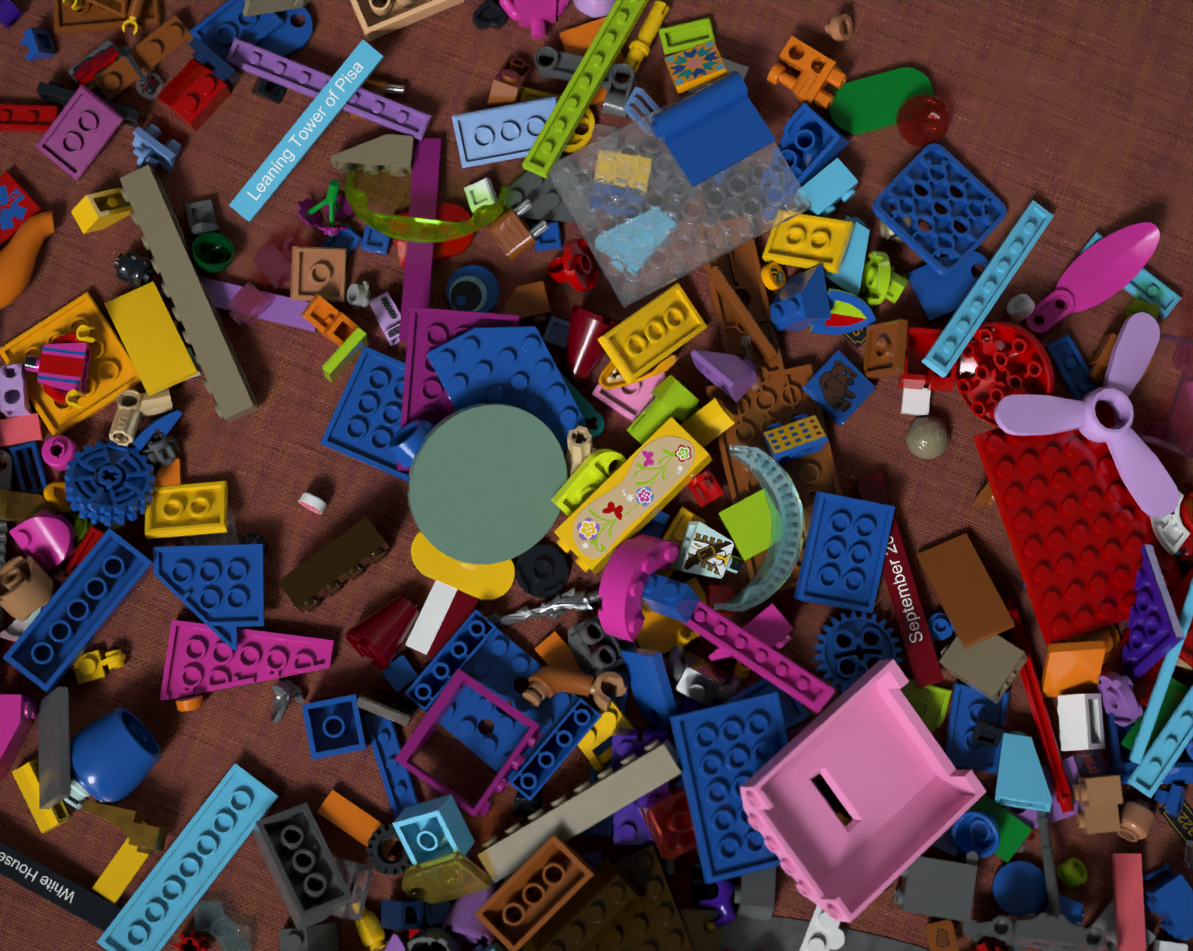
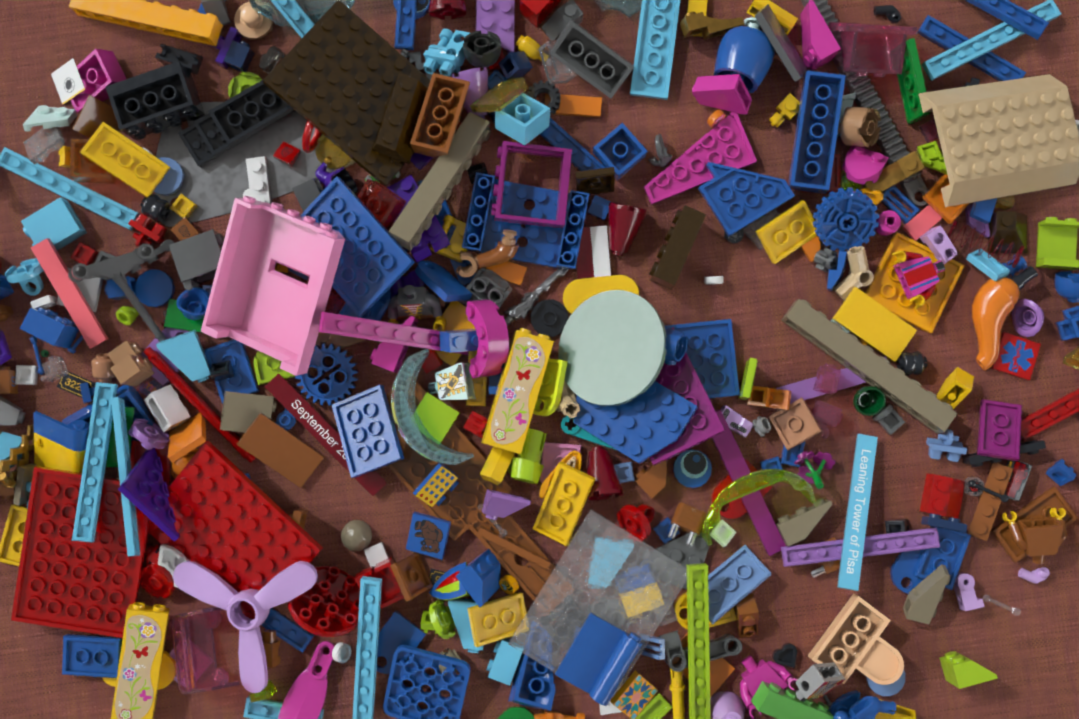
camera: 150 degrees right, 5 degrees up
(164, 728) = (723, 92): none -> dark pink slope

